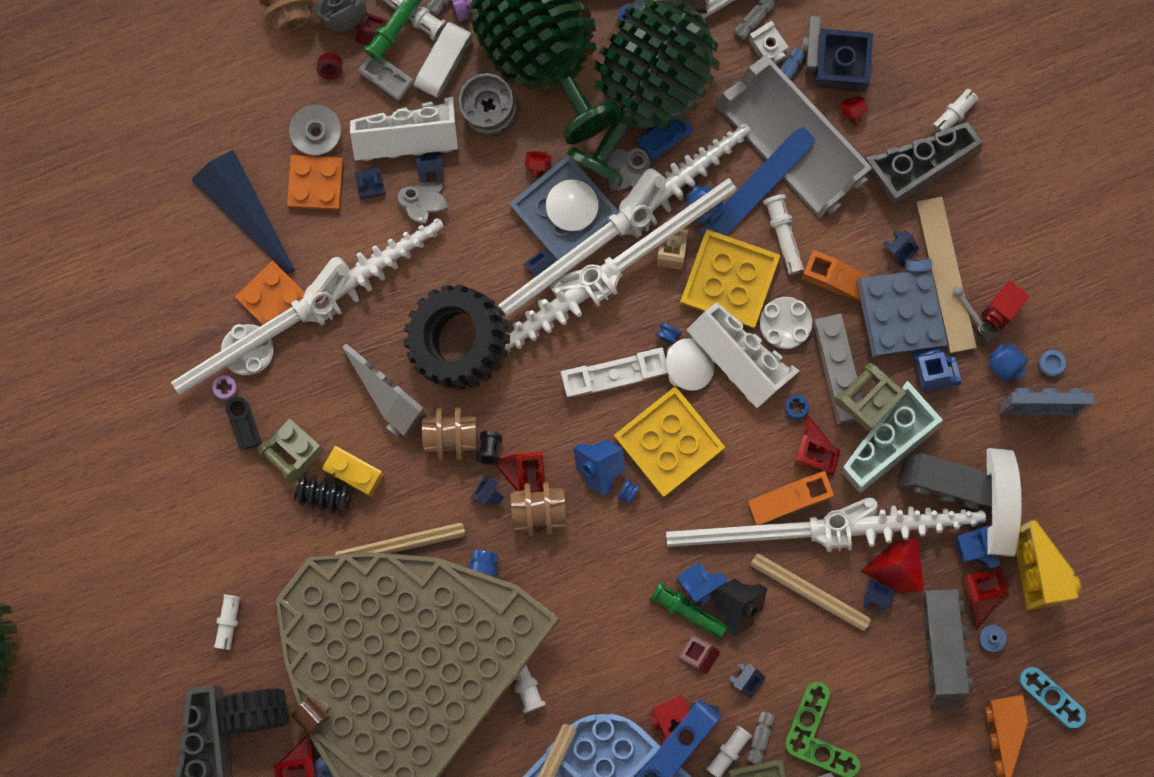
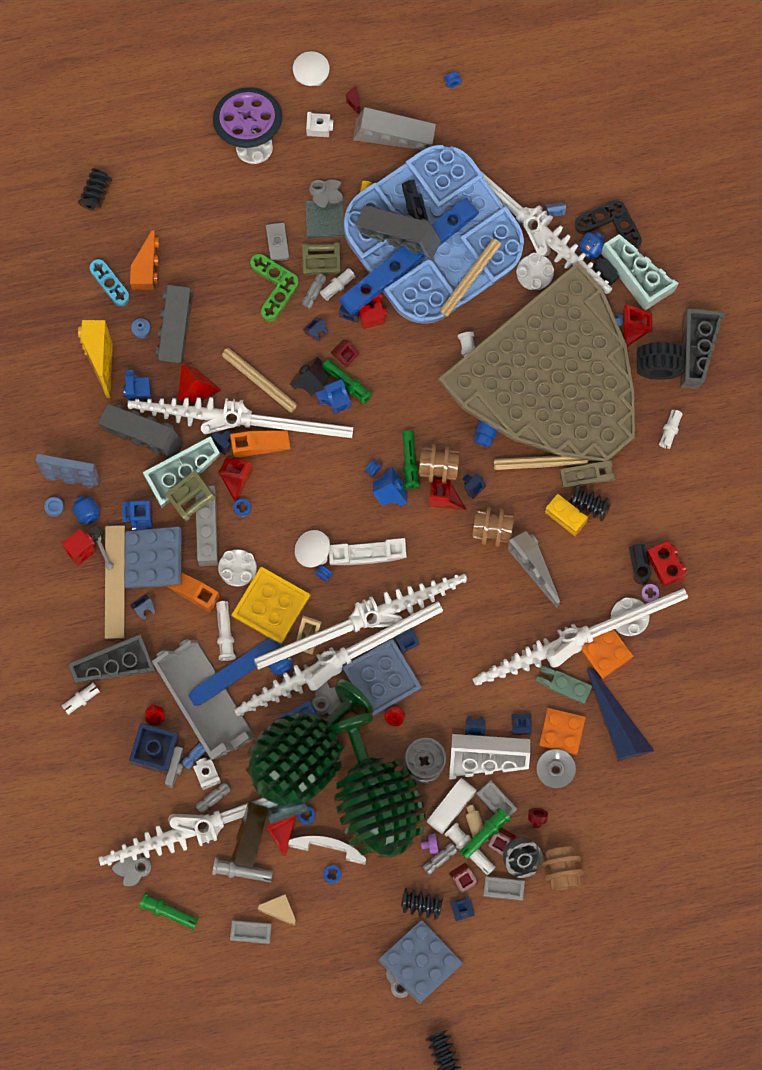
camera: 170 degrees left, 5 degrees down
(212, 425) = (661, 565): none -> red brick
(297, 444) = (604, 541): olive plate -> none
(310, 716) = (620, 350): reddish brown brick -> none
(319, 243) = (565, 685): none -> sand green hinge
(334, 535) = (587, 474): none -> dark tan plate
(410, 45) = (474, 820): none -> tan cylinder
(424, 200) = (481, 701): light grey plate -> none
(428, 323) = (493, 575): black tyre -> none
(489, 448) = (466, 515): black bush -> none
(572, 205) = (375, 676): white dish -> none
(577, 501) = (410, 469): none -> green pin
(669, 441) = (337, 498): yellow plate -> none
(740, 355) = (273, 546): white wedge -> none
(843, 491) = (222, 441): none -> dark blue tile
(878, 594) = (213, 368): dark blue tile -> none
(918, 264) = (133, 591): medium blue tile -> none
(984, 592) = (139, 360): red slope -> none
(1006, 502) = (111, 409): white slope -> none

